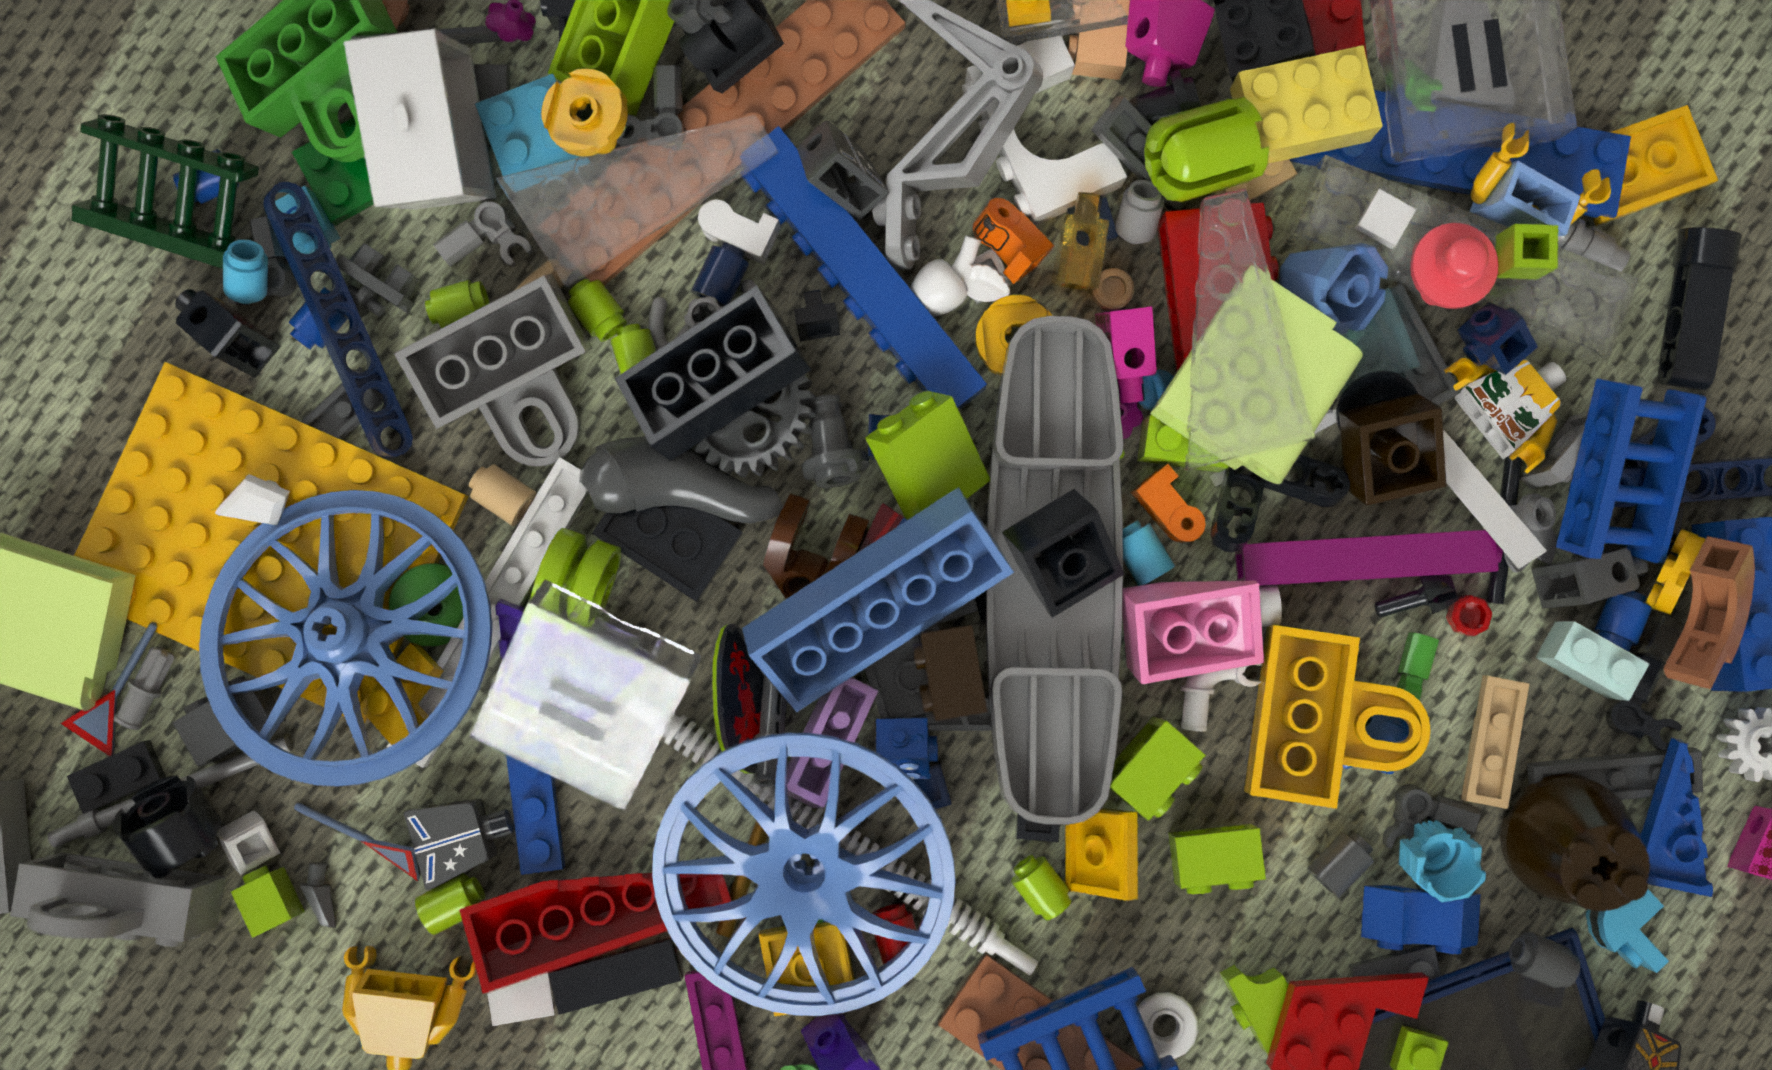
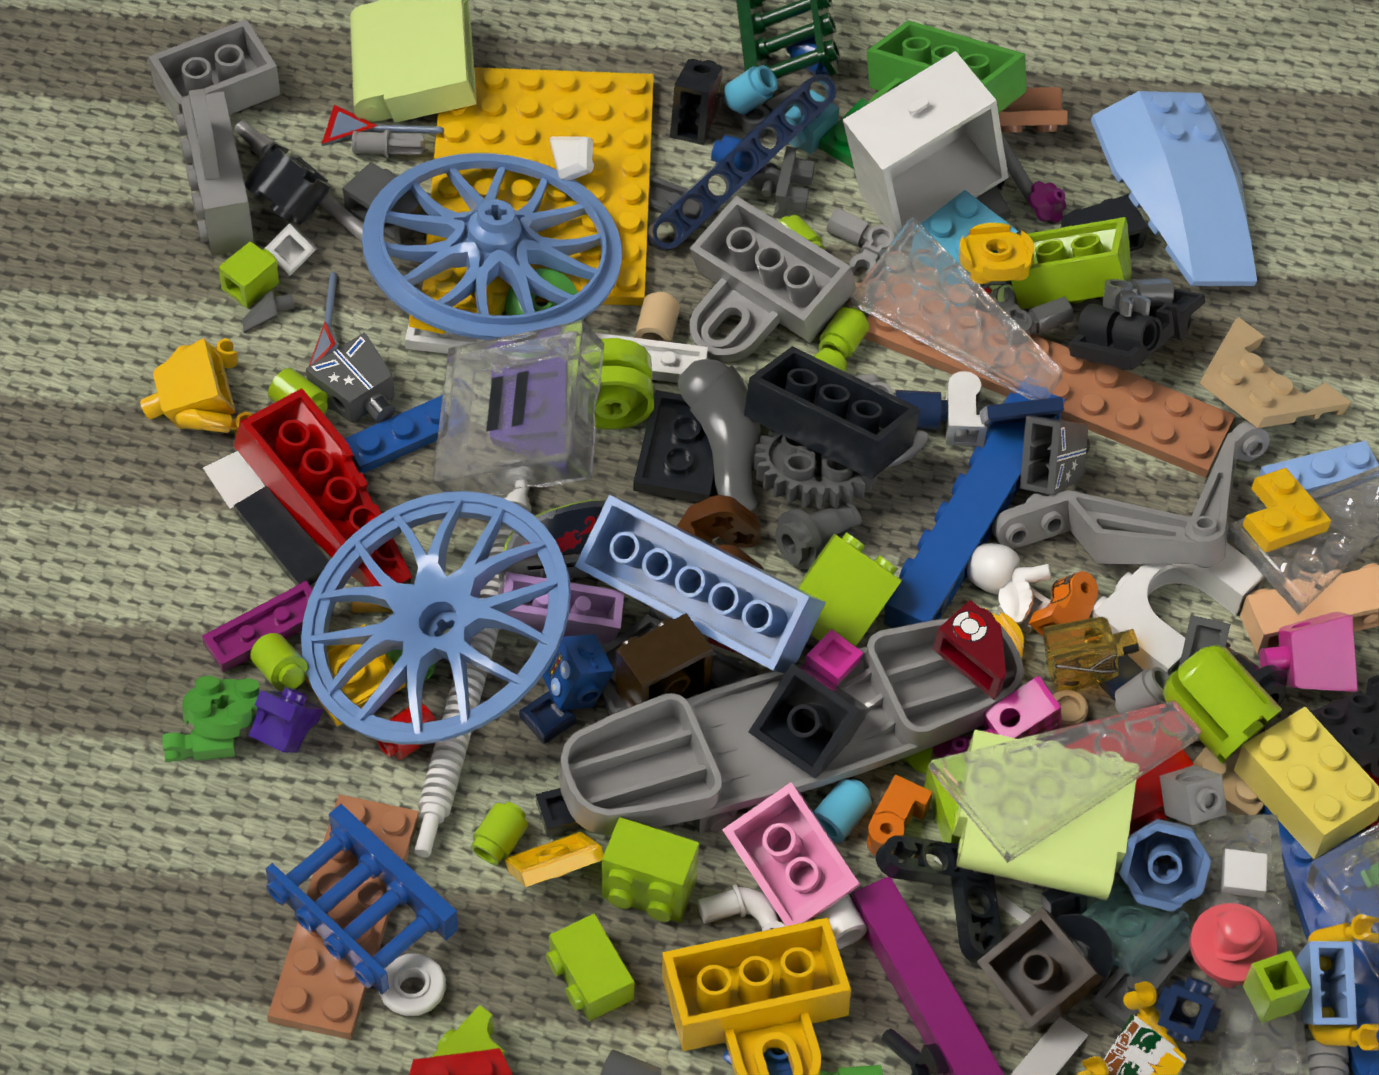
camera: 65 degrees right, 30 degrees down
(116, 776) = (310, 147): black plate -> none
(773, 1036) = (279, 661): none -> lime brick
(787, 179) = (1019, 410): none -> dark blue tile
(816, 319) = (918, 488): black tile -> none
(1003, 499) = (833, 657): none -> dark pink plate
(1059, 359) = (974, 647): none -> dark red slope
(1288, 224) = (1193, 795): none -> light grey brick

